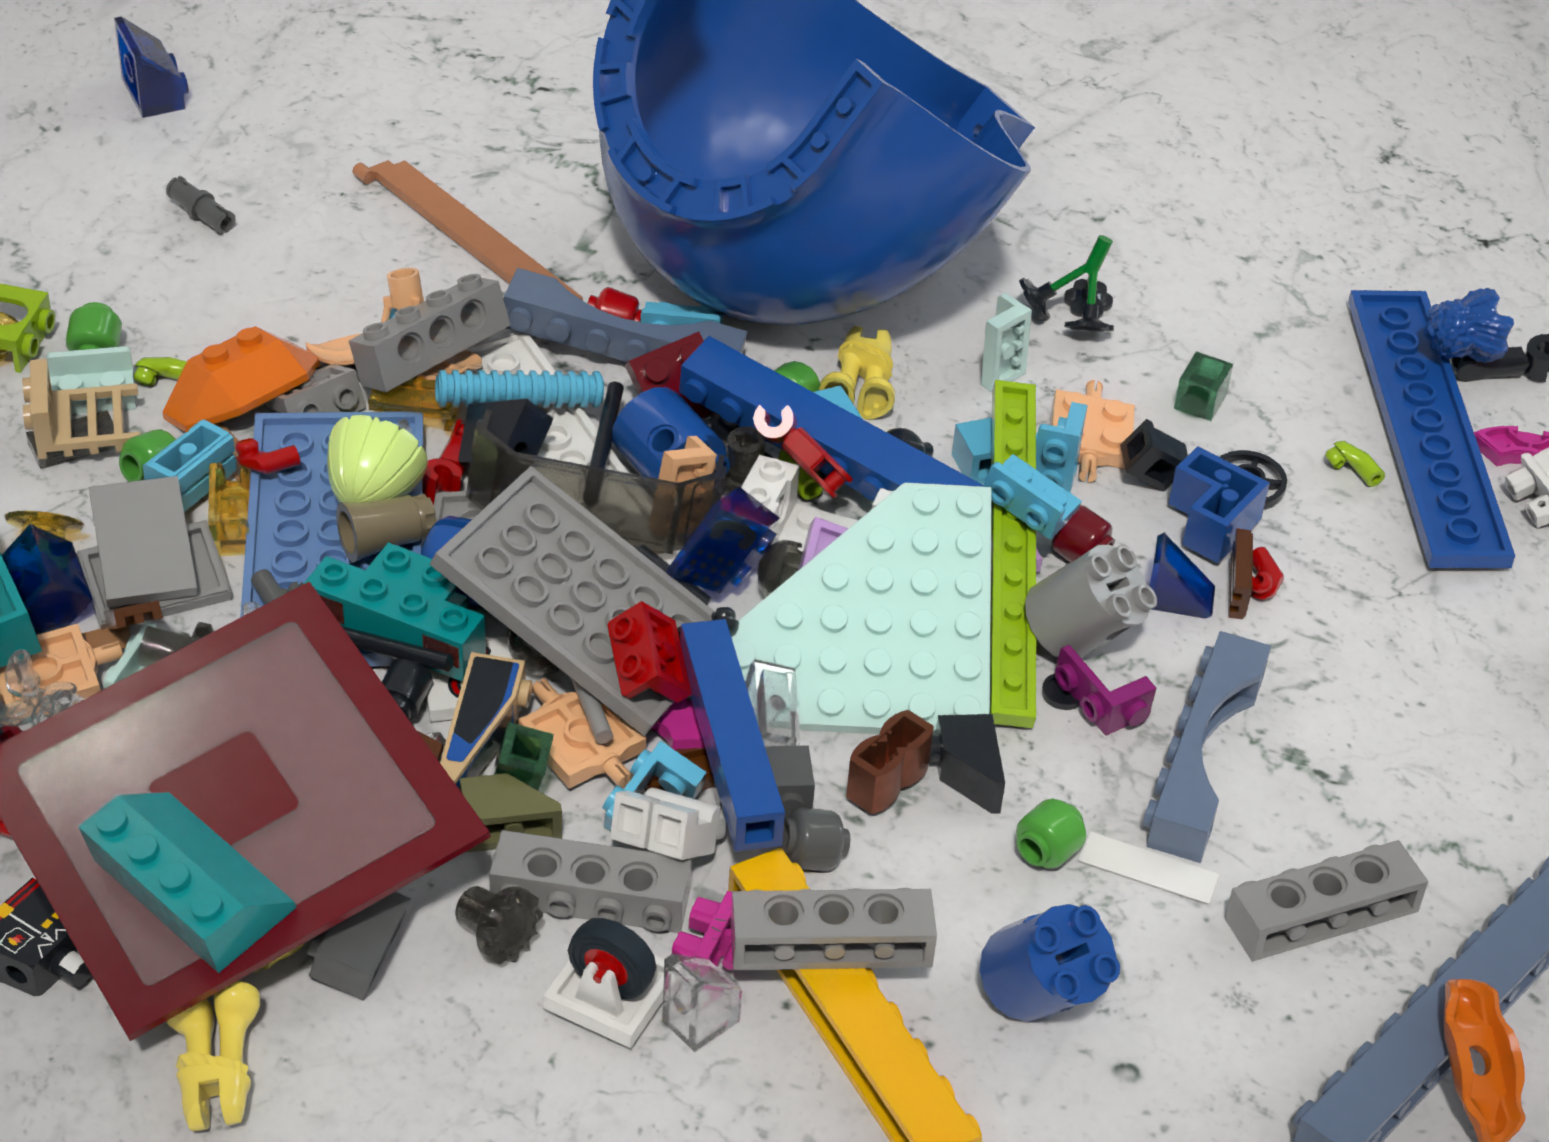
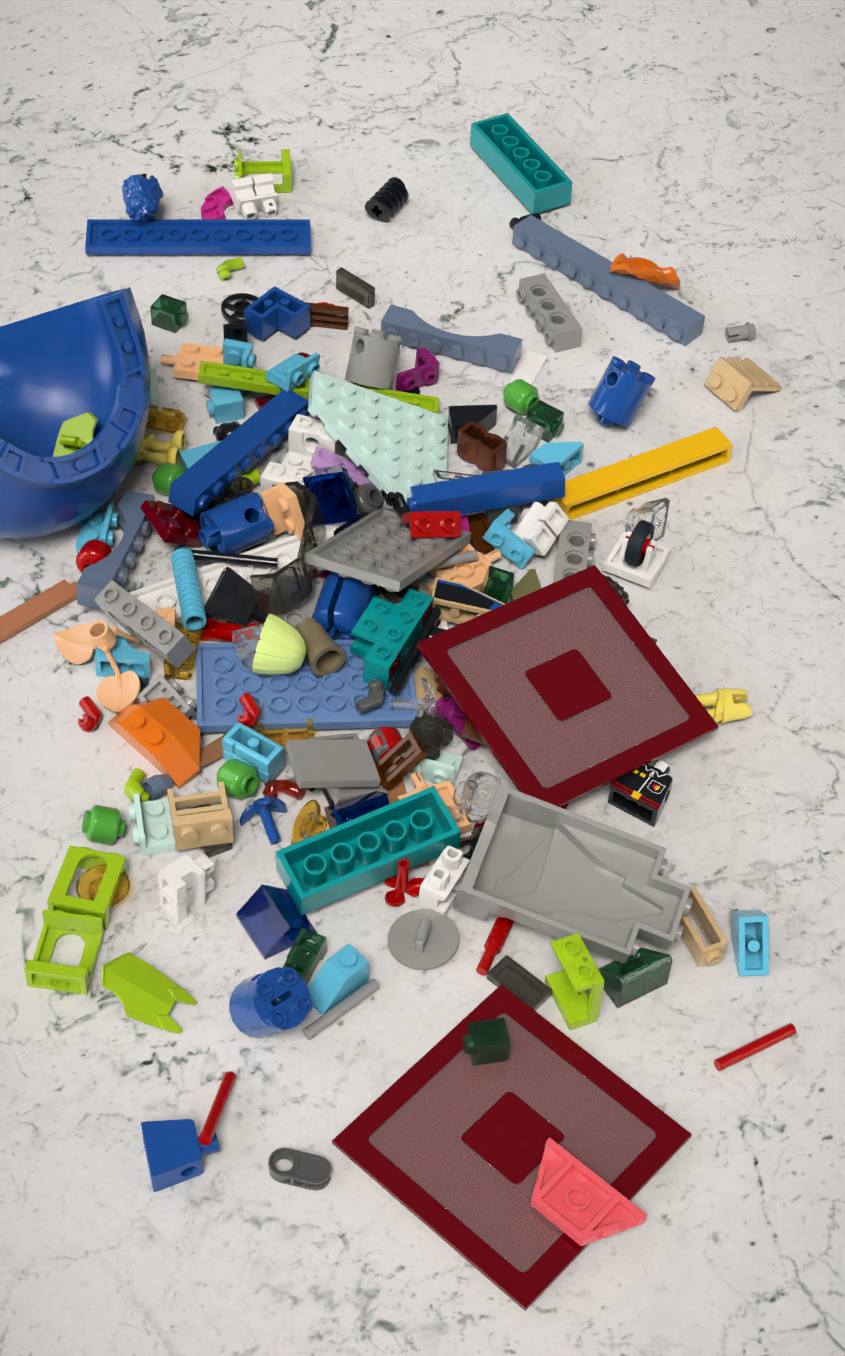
camera: 90 degrees left, 5 degrees up
(73, 490) = (263, 807): none -> blue plant
(157, 384) = (157, 785): none -> sand blue hose
(185, 609) = (382, 741): none -> red head
(185, 875) = (631, 692): teal slope -> none
(308, 329) = (92, 714): none -> red arm
(713, 920) = (604, 519): dark pink hips -> none
(739, 593) = (368, 498): none -> dark grey head
(801, 448) = (253, 457): red piece -> none
(832, 929) = (612, 461): light grey brick -> none
(868, 862) = (566, 453): none -> medium azure slope
(930, 829) = (522, 440): none -> clear slope
(942, 382) = (168, 420): none -> clear yellow hinge
(988, 868) = (547, 417): none -> clear green brick
(1179, 582) = (332, 342): clear blue slope -> none
(1330, 614) = (355, 288): none -> clear smoke tile

